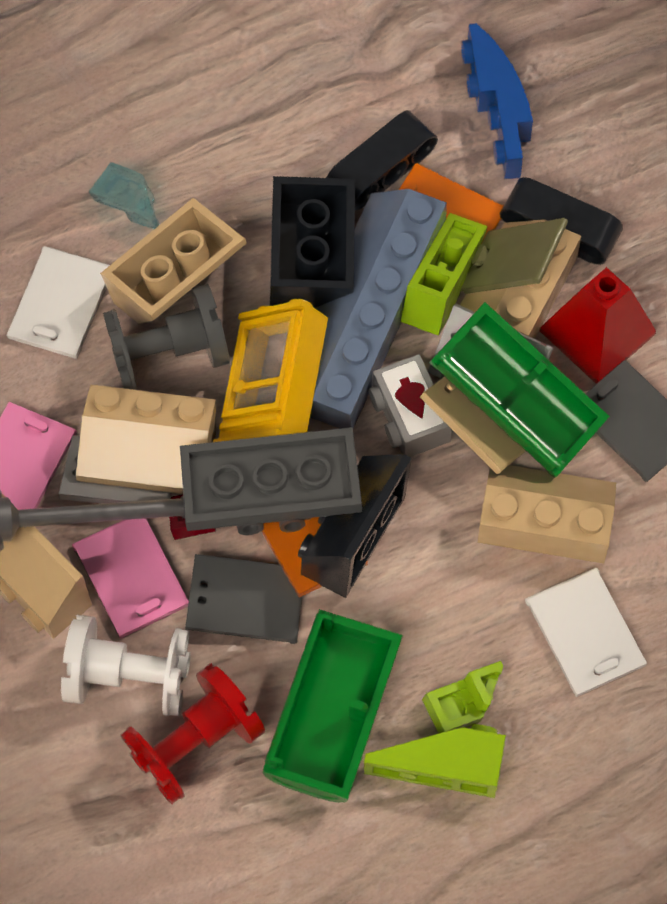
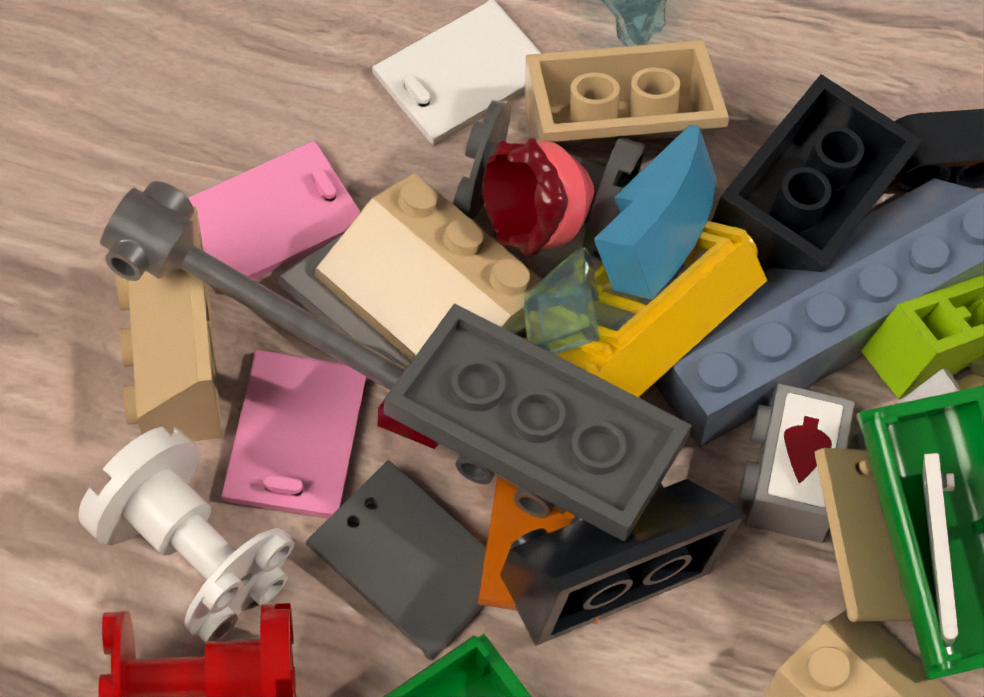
camera: 30 degrees right, 5 degrees down
(174, 355) = (536, 195): none -> dark red hair
(233, 407) = (562, 307): none -> clear light blue slope
(249, 321) = (659, 217): none -> dark azure slope
(495, 376) = (934, 485): none -> white container

